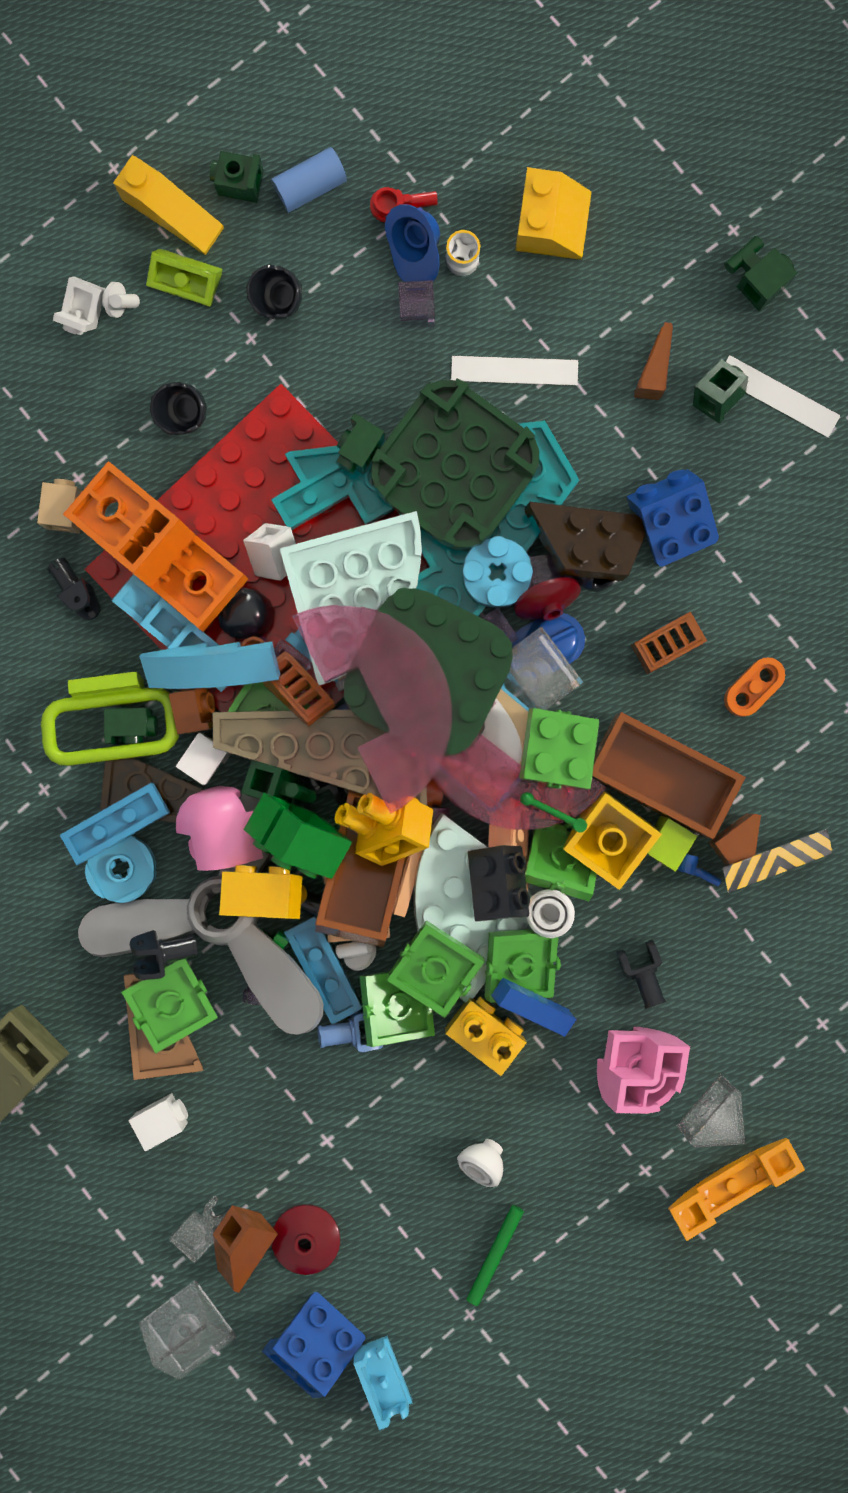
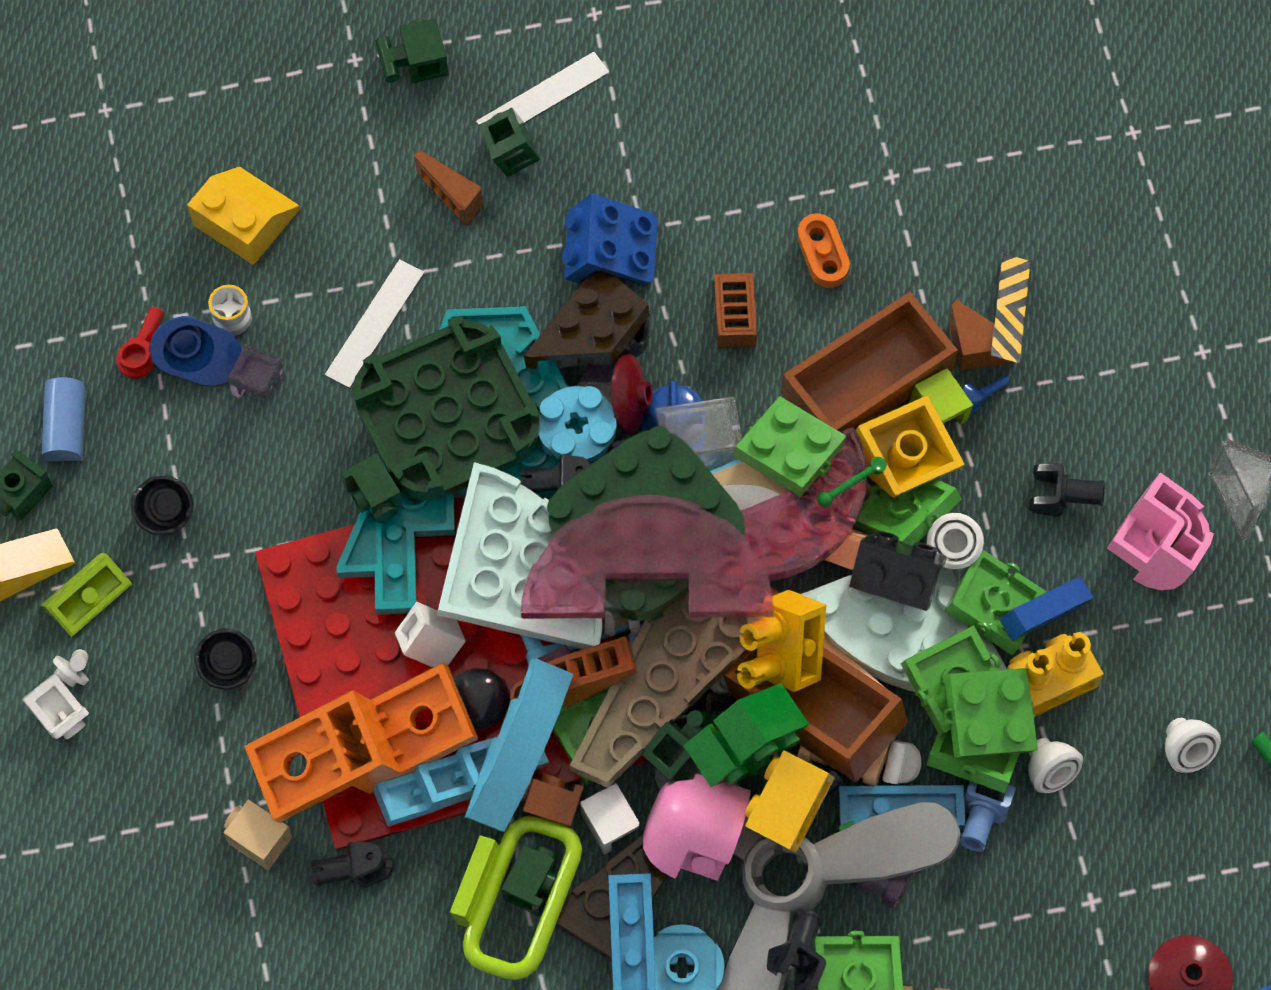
camera: 60 degrees left, 20 degrees down
(413, 1066) = (1053, 765): none -> white brick
(418, 1008) = (990, 713): none -> bright green plate
(443, 584) = (553, 478): none -> black piece

